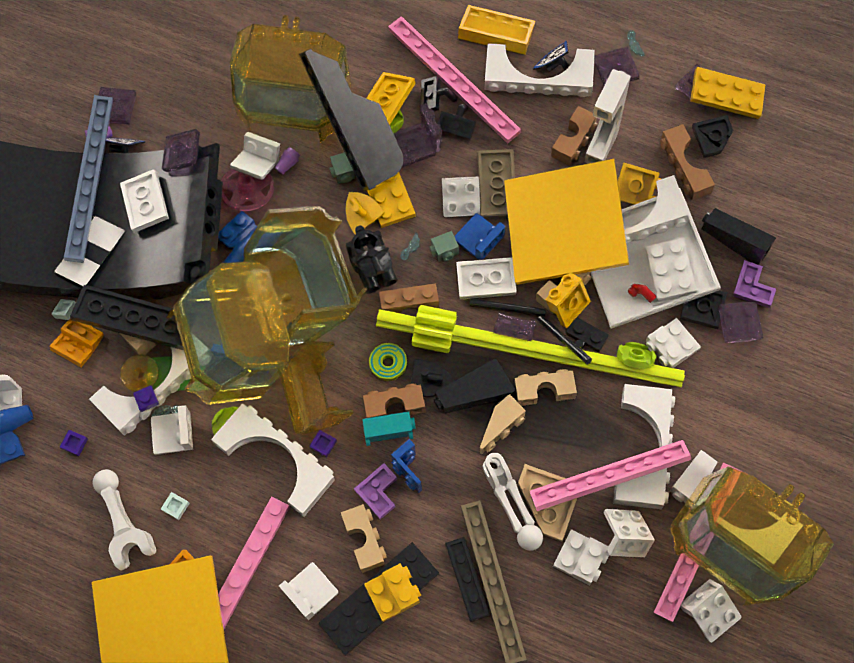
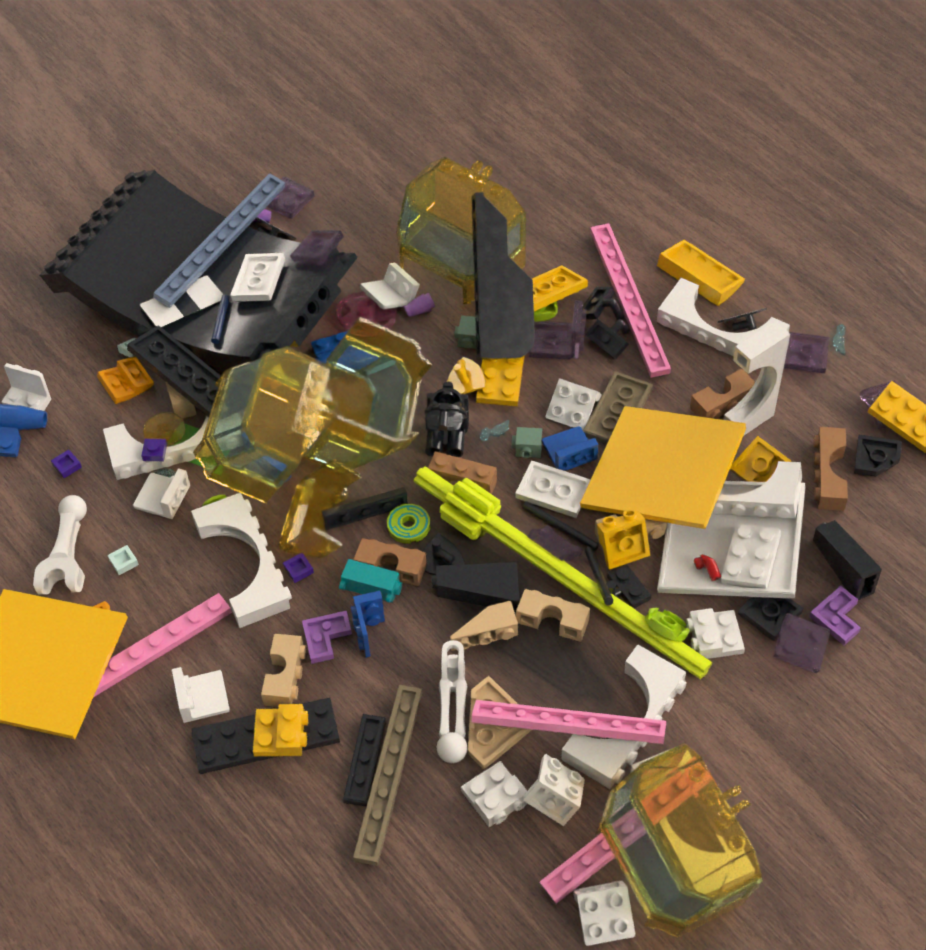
camera: 25 degrees right, 15 degrees down
(133, 254) = (220, 319): none -> dark blue bar
(347, 367) = (363, 508): none -> black tile

